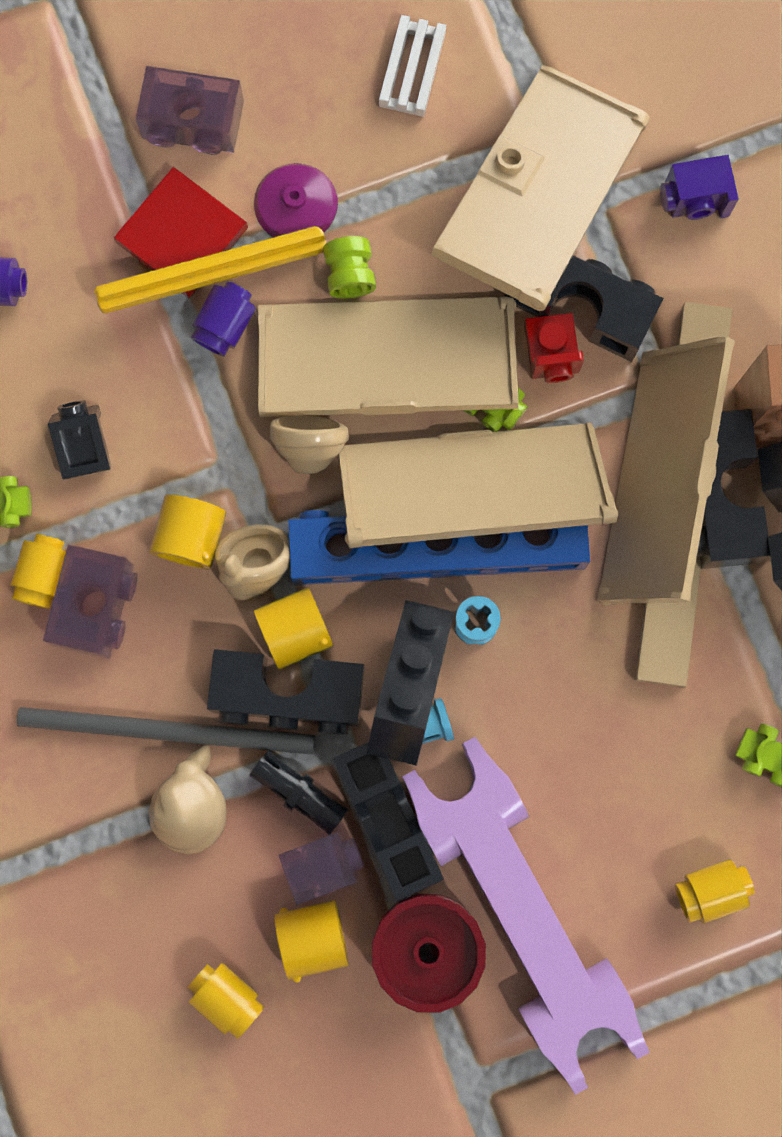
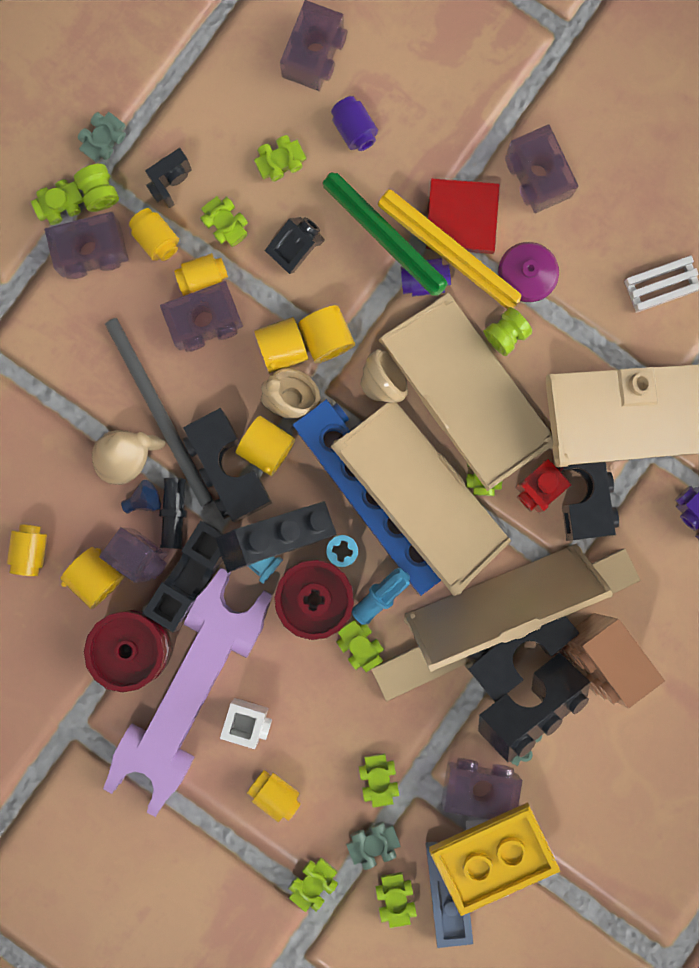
camera: 55 degrees right, 5 degrees up
(141, 328) = (384, 234): none -> green axle
(211, 471) = (326, 334): none -> yellow piece
(257, 816) = (144, 498): none -> dark blue rock
(529, 663) = (307, 619): none -> dark red wheel
(560, 609) = (381, 596): none -> dark azure axle
(608, 866) = (246, 723): none -> white brick
(609, 674) = (364, 652): none -> lime piece

